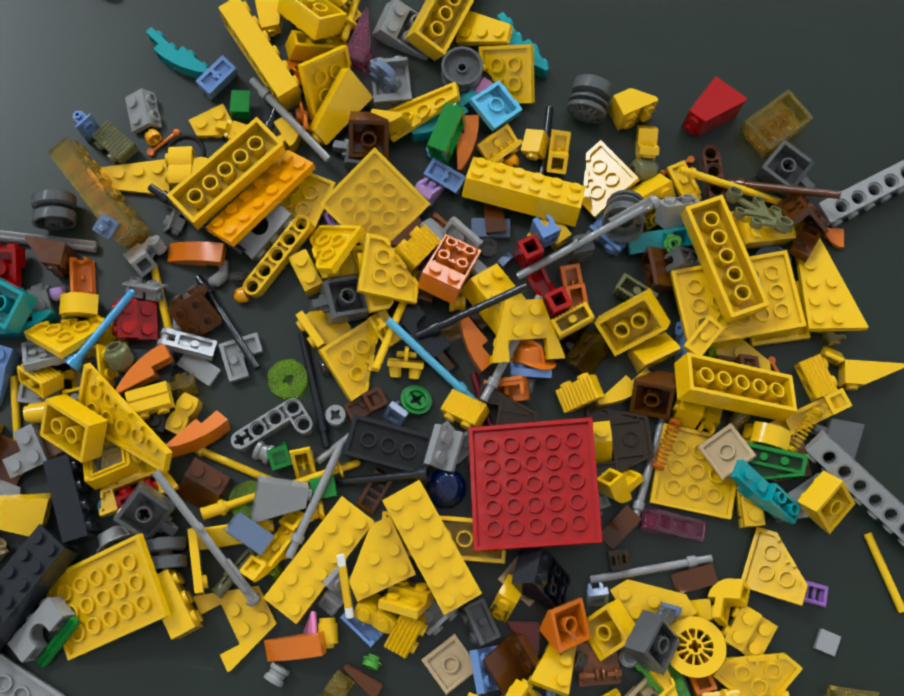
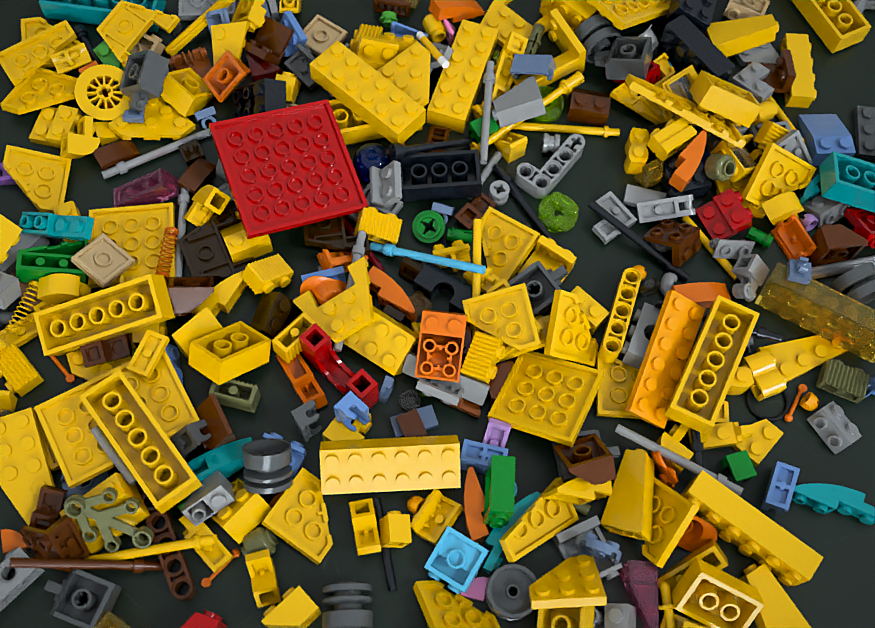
camera: 160 degrees right, 10 degrees down
(75, 361) = (755, 150): dark azure piece -> none
(109, 290) = (760, 237): none -> green pin
(199, 435) = (614, 138): orange slope -> none
(227, 564) = (507, 27): light grey bar -> none
(279, 457) = (535, 136): green panel -> none
(391, 384) = (458, 234): none -> green pin
(420, 51) = (569, 585): none -> yellow plate
(435, 327) = (432, 288): black bar -> none
(580, 662) = (207, 58): clear smoke tile -> none
(617, 220) = (237, 466): light grey bar -> none
(669, 239) = (206, 458): bright green plate -> none

